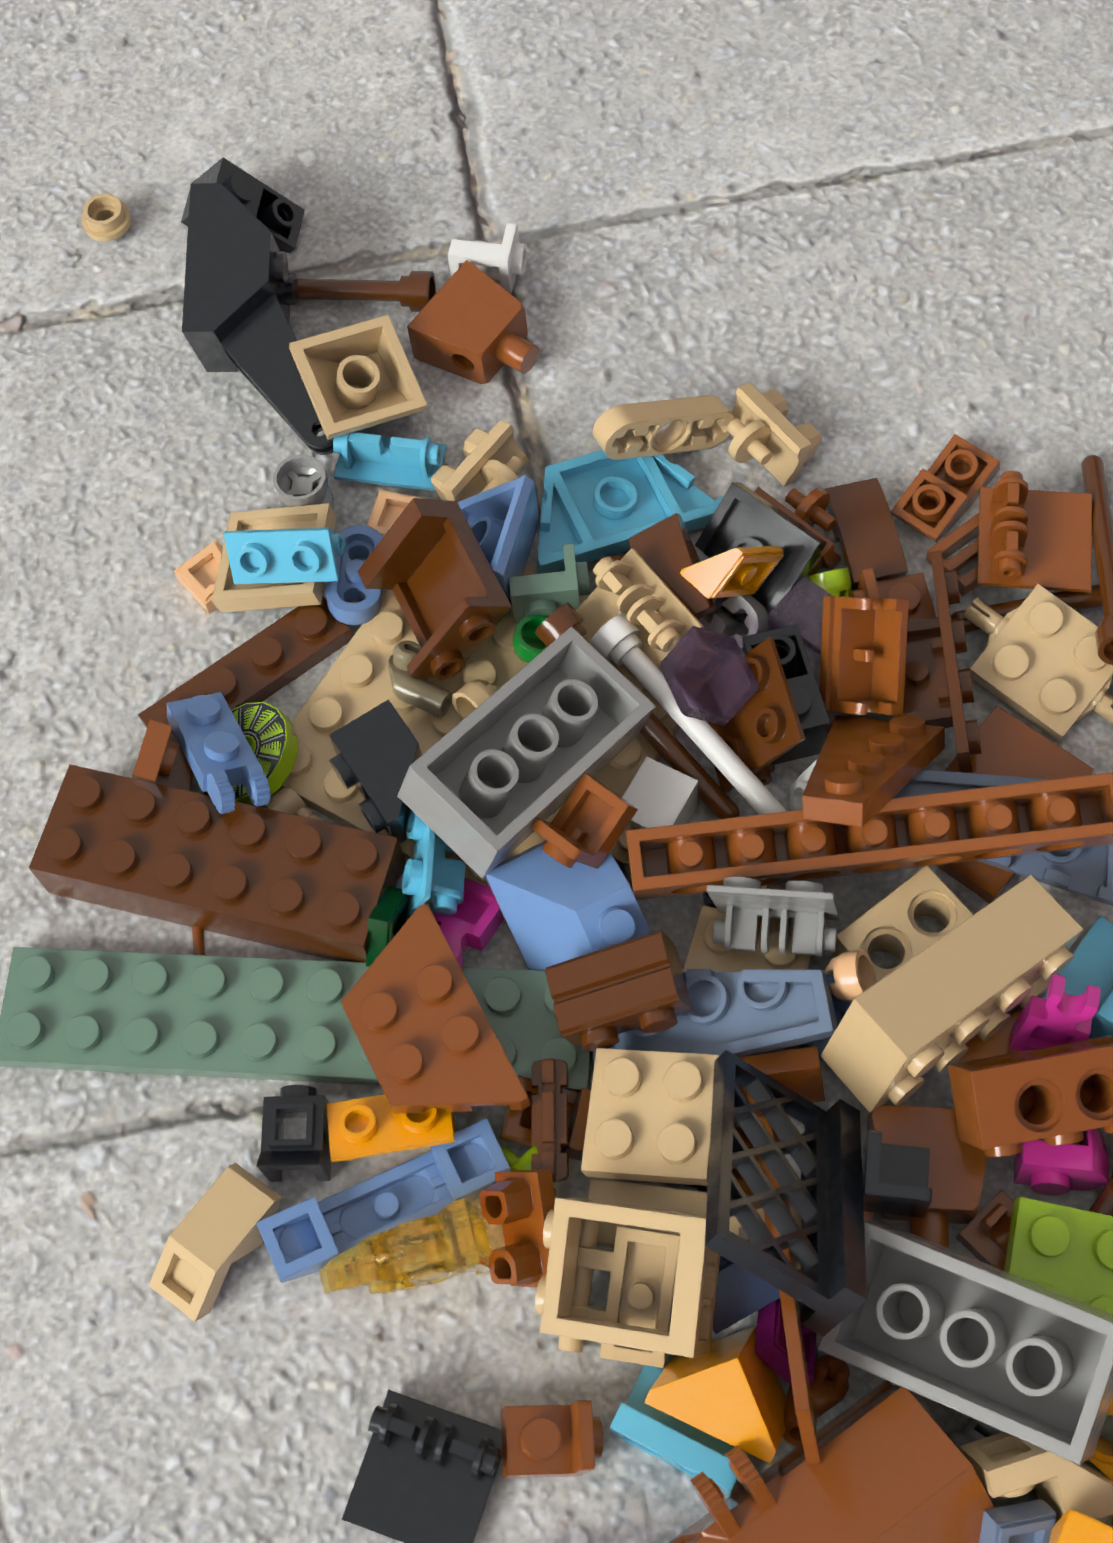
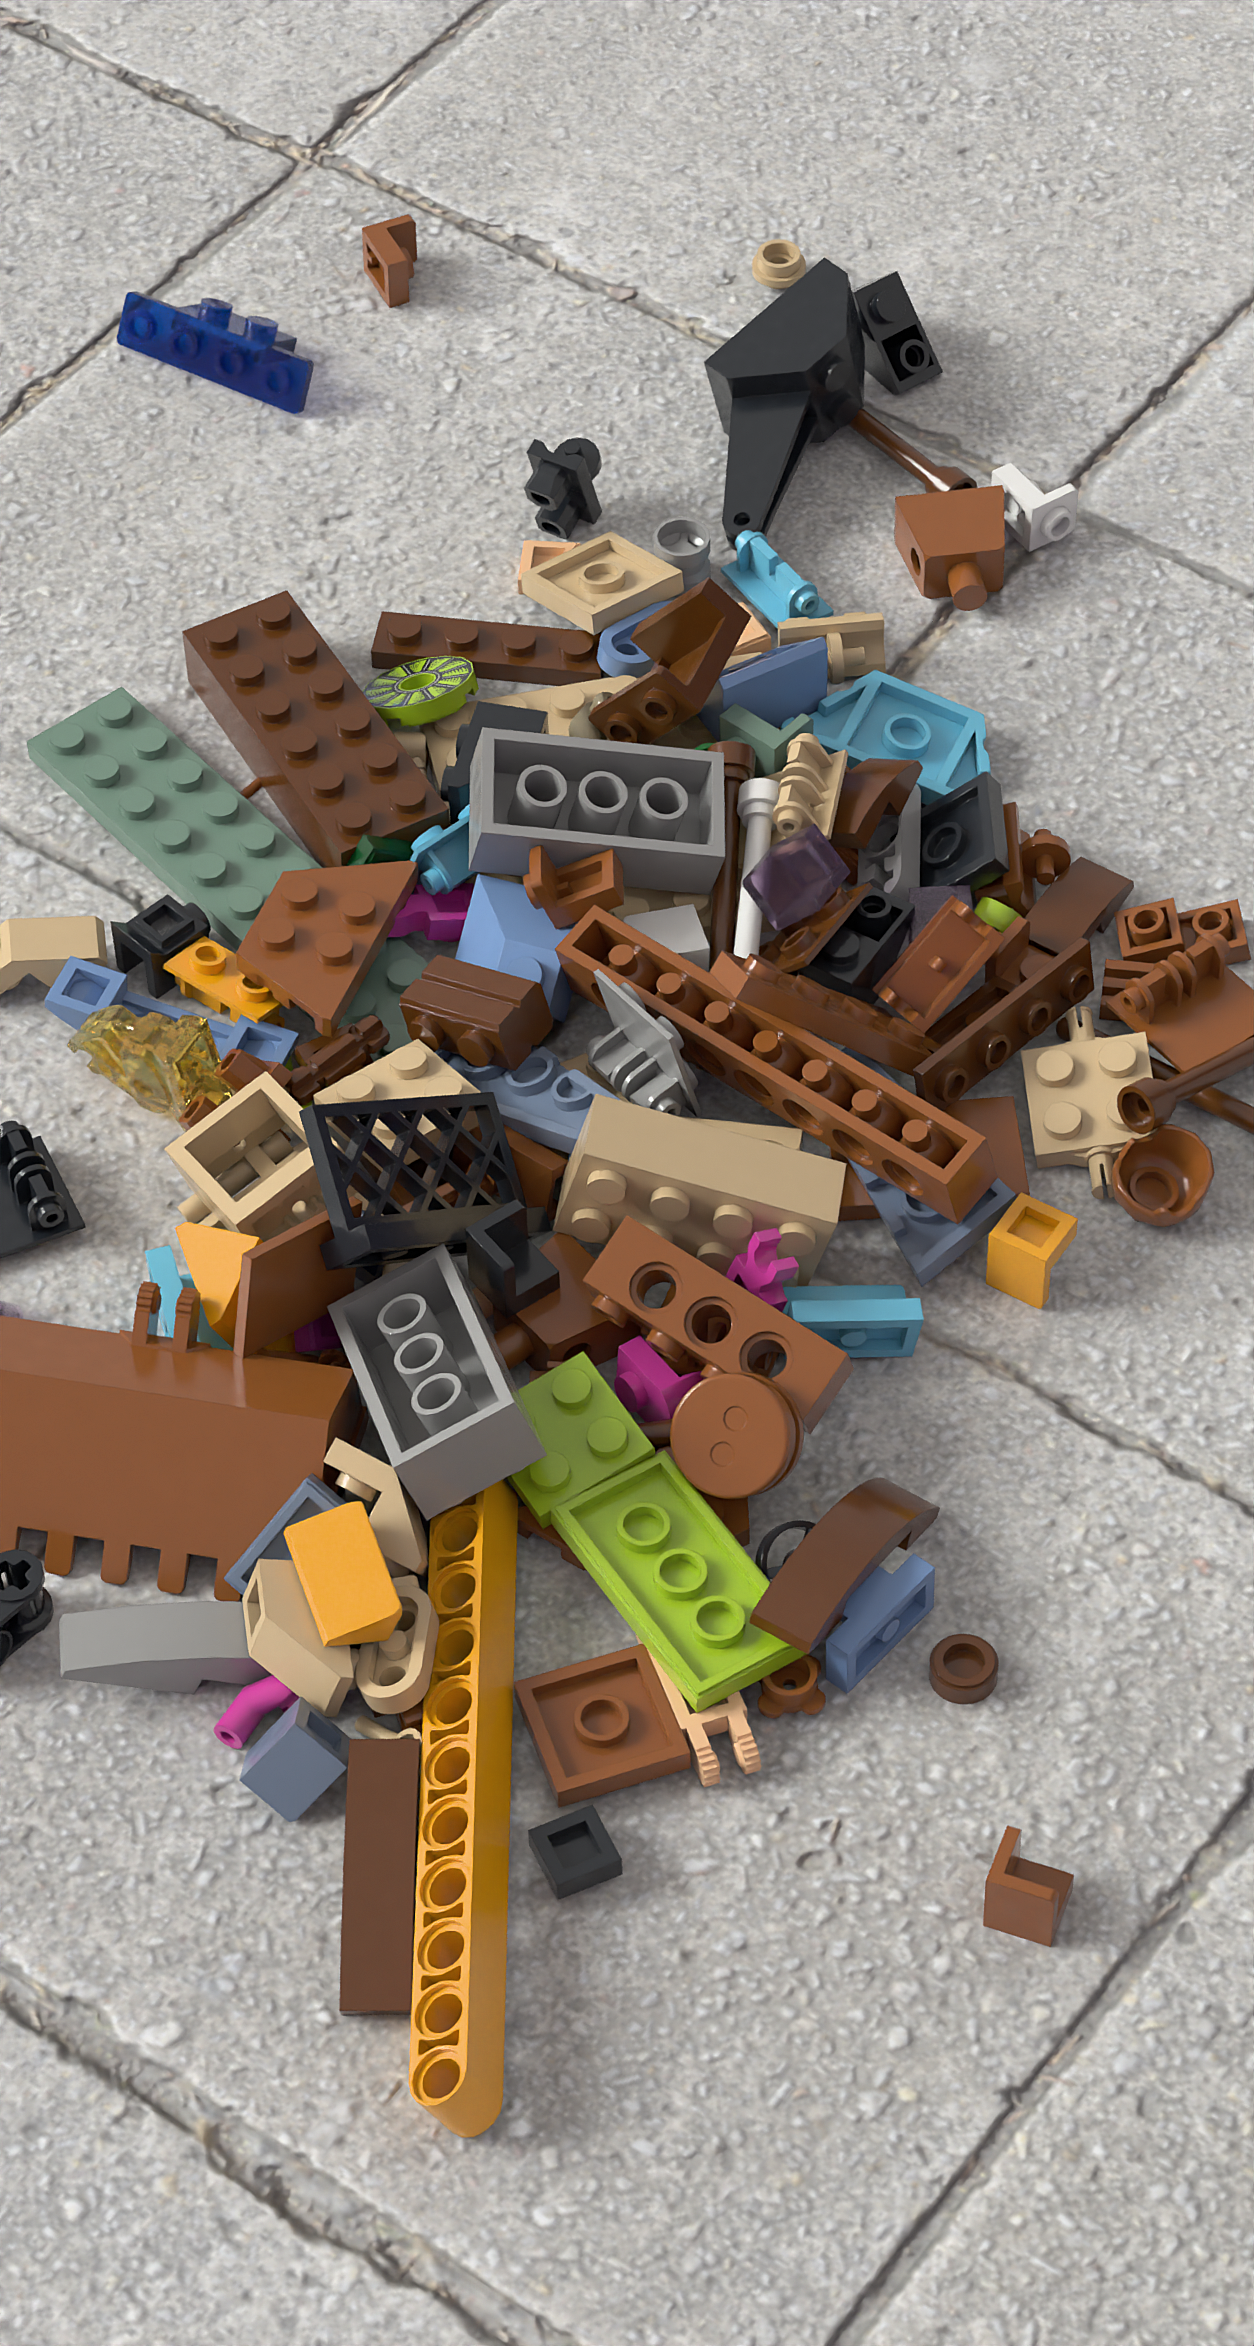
camera: 40 degrees right, 15 degrees down
(162, 758) = (358, 639): dark orange bracket -> none
(164, 502) = (564, 485): none -> black hips
(217, 750) = (398, 658): medium blue hinge -> none
(284, 555) = (600, 572): medium azure hinge -> none
(357, 376) = (809, 499): tan slope -> none
(550, 1440) = (102, 1244): dark orange bracket -> none
(632, 428) = (958, 702): tan beam -> none
(734, 571) = (902, 823): light orange slope -> none
(768, 436) = (1081, 784): tan hips -> none

